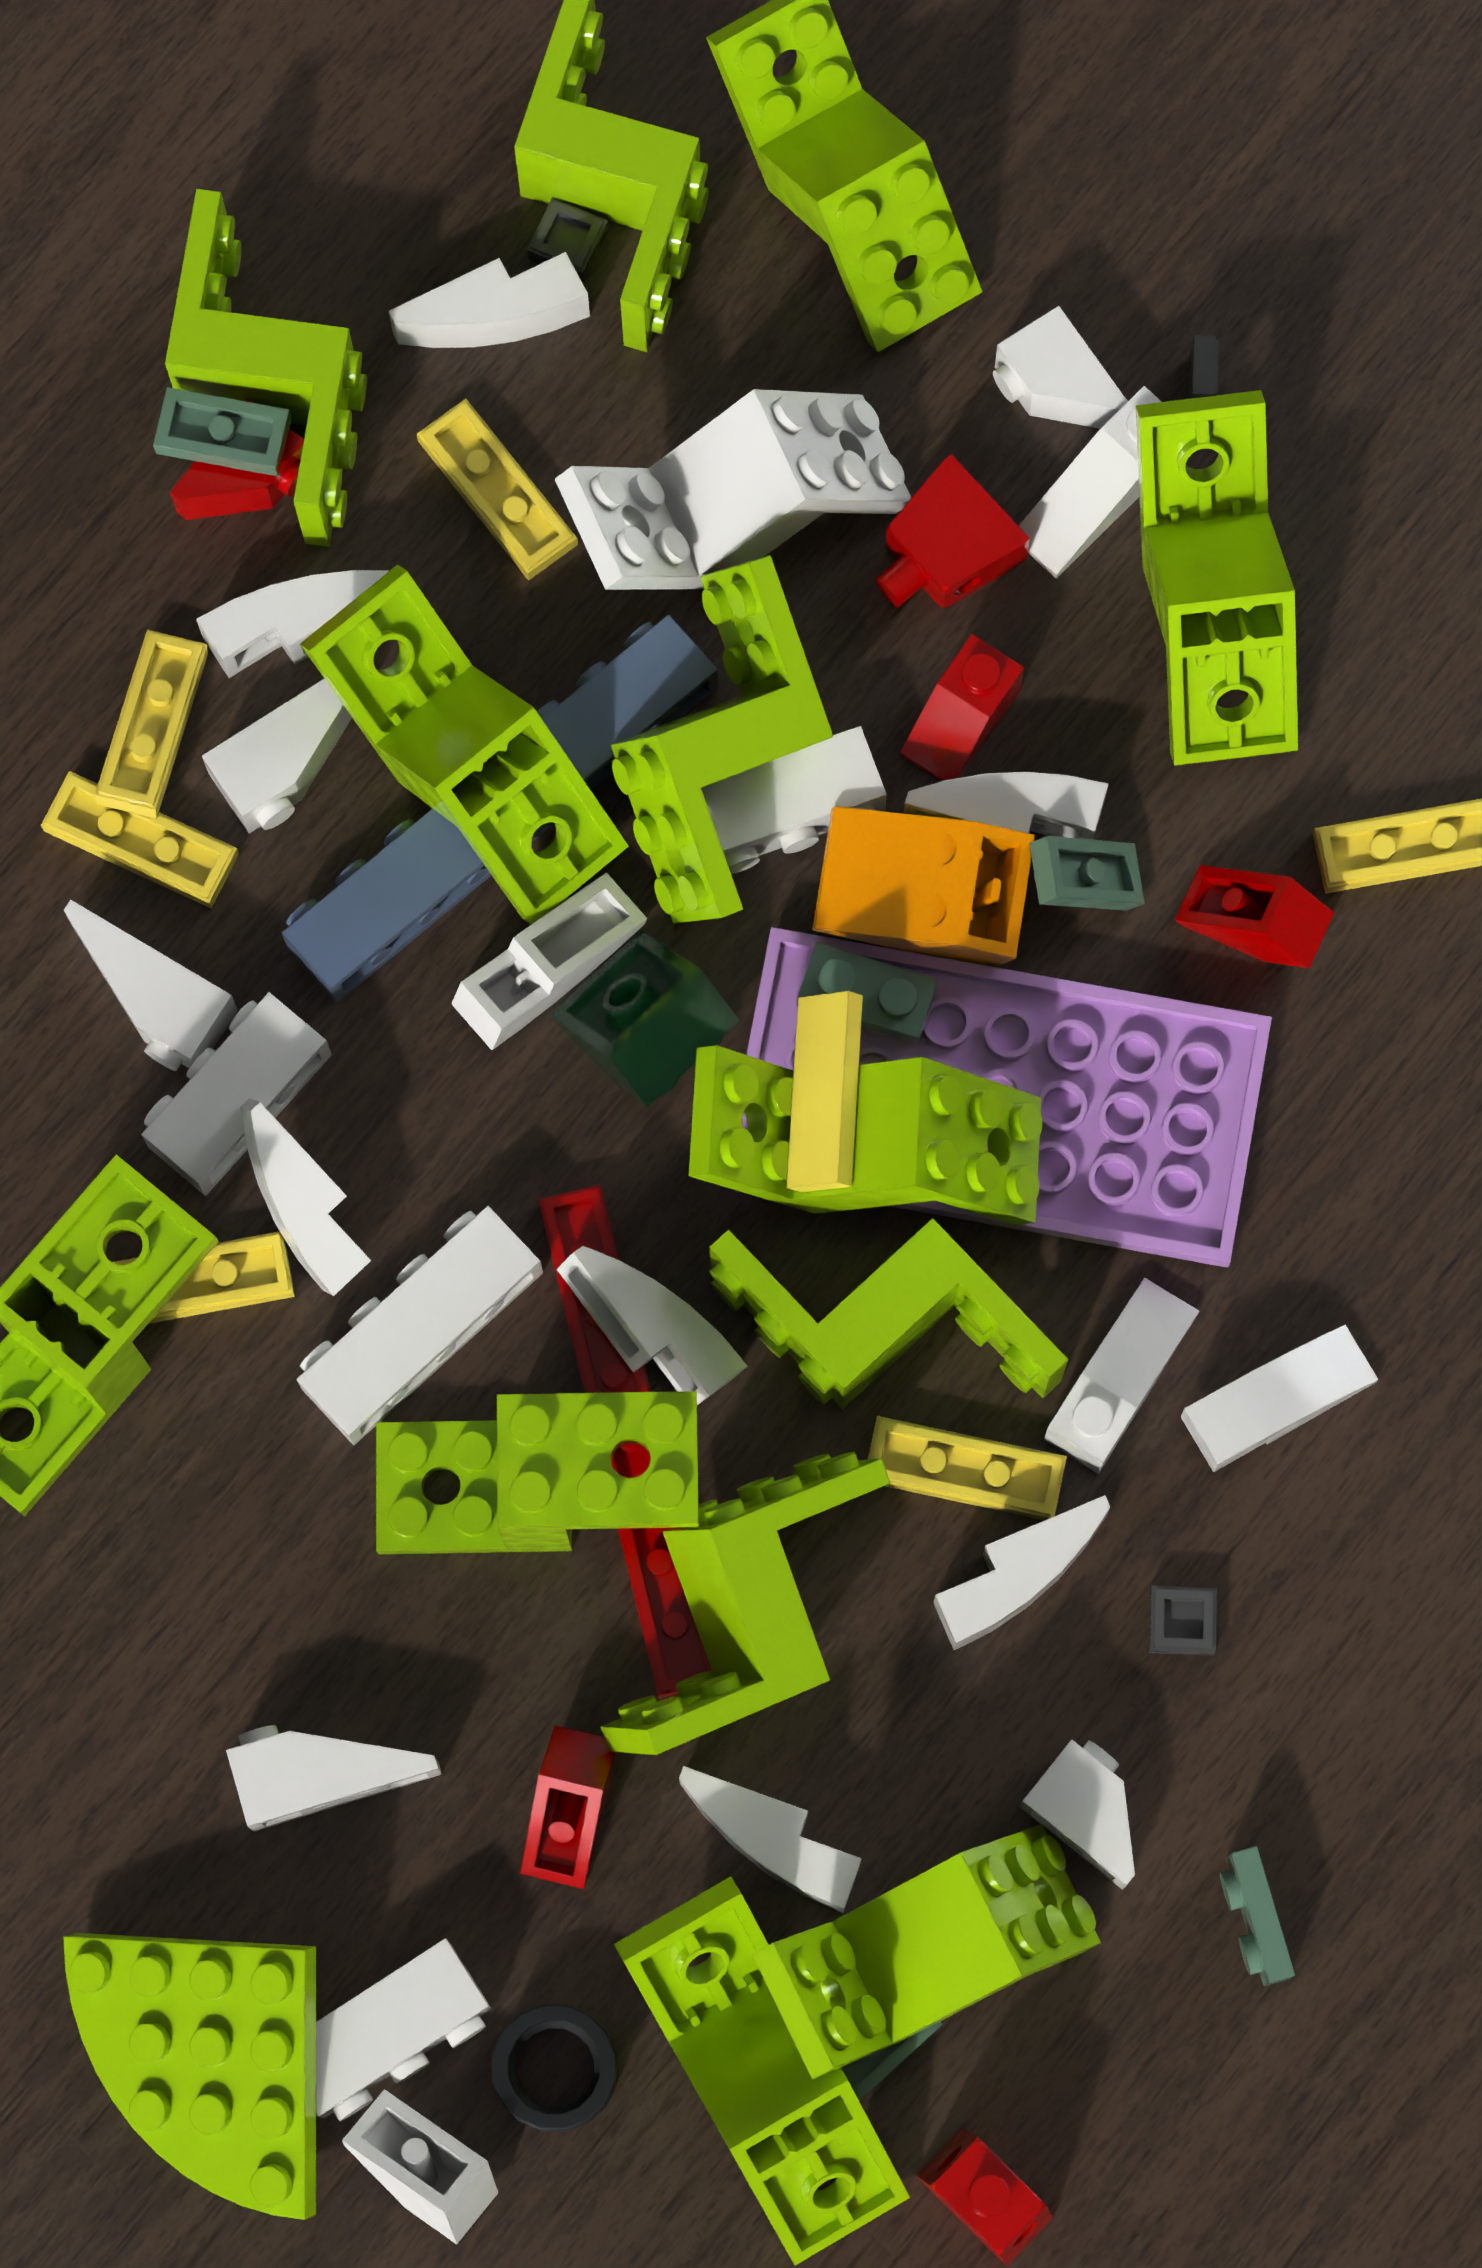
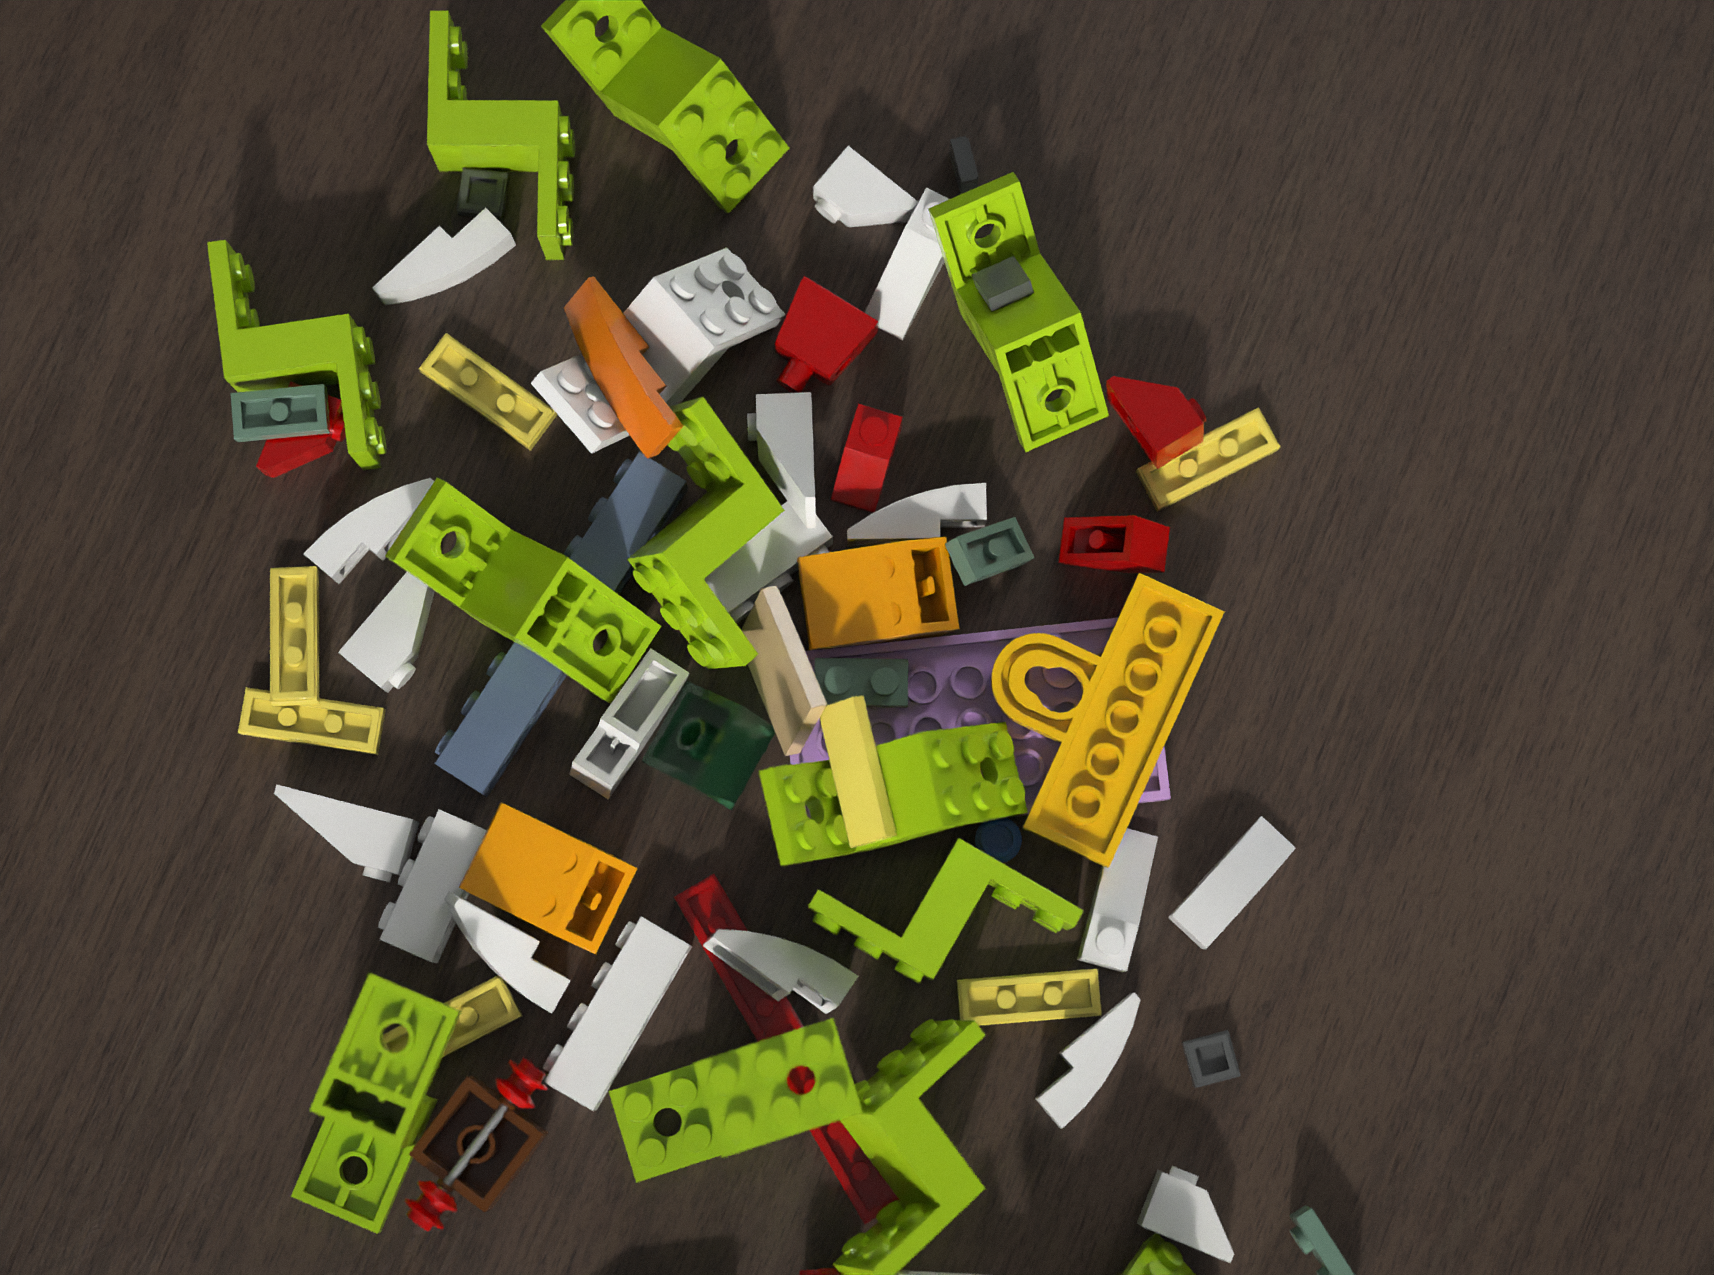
camera: 20 degrees left, 5 degrees up
(186, 1433) = (477, 1144): none -> reddish brown brick
(383, 1119) = (548, 878): none -> light orange slope
(675, 496) = (618, 366): none -> orange slope
(768, 943) = (783, 671): none -> tan tile
(861, 664) = (786, 447): none -> white slope
(991, 1248) = (999, 839): none -> blue plate
(1190, 1141) = (1121, 718): none -> yellow plate
(1206, 532) = (1002, 283): none -> dark grey tile
(1360, 767) = (1157, 417): none -> red slope

